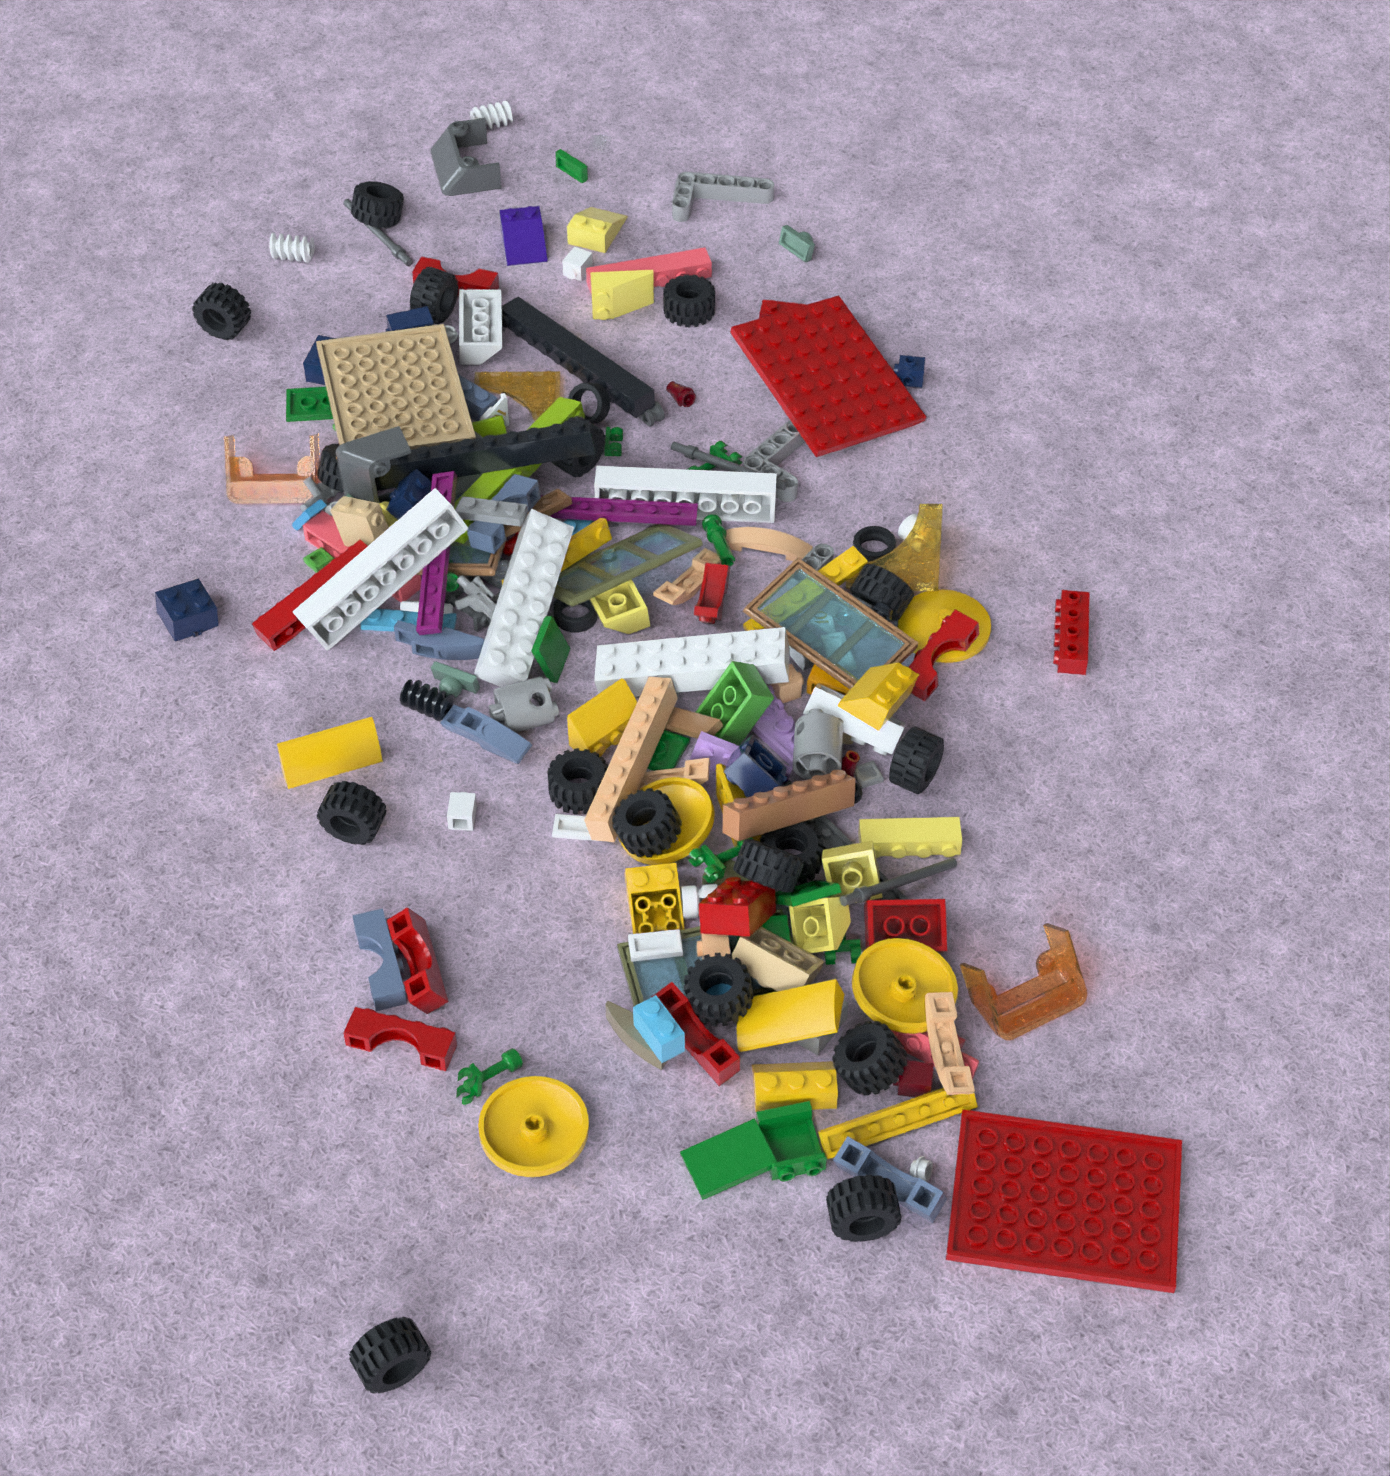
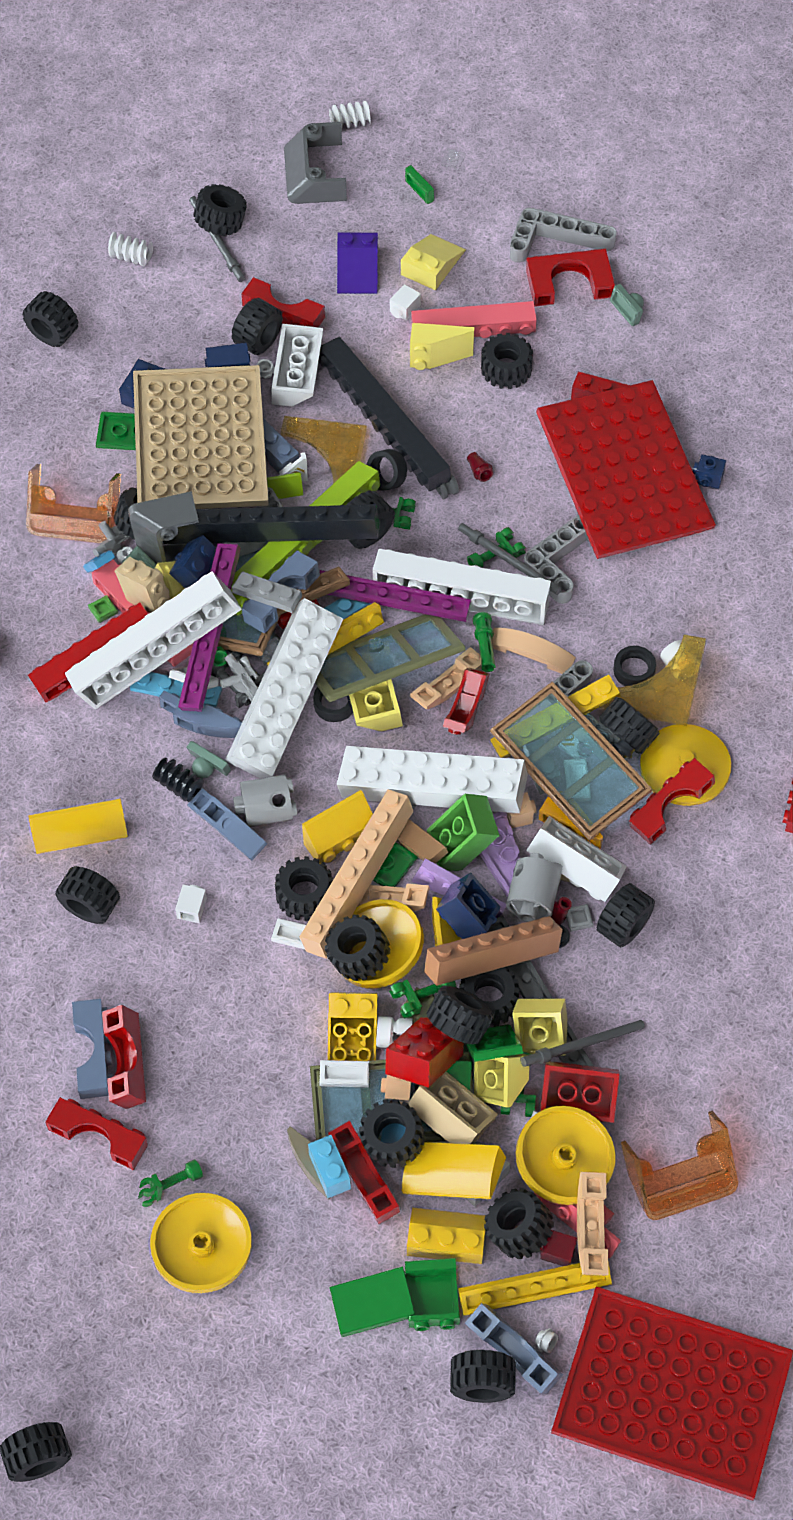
camera: 10 degrees right, 10 degrees up
(550, 649) = (302, 742): green tile -> none
(754, 213) = (592, 264): none -> red arch
(879, 693) = (601, 842): yellow slope -> none
(912, 836) = (606, 993): light yellow brick -> none

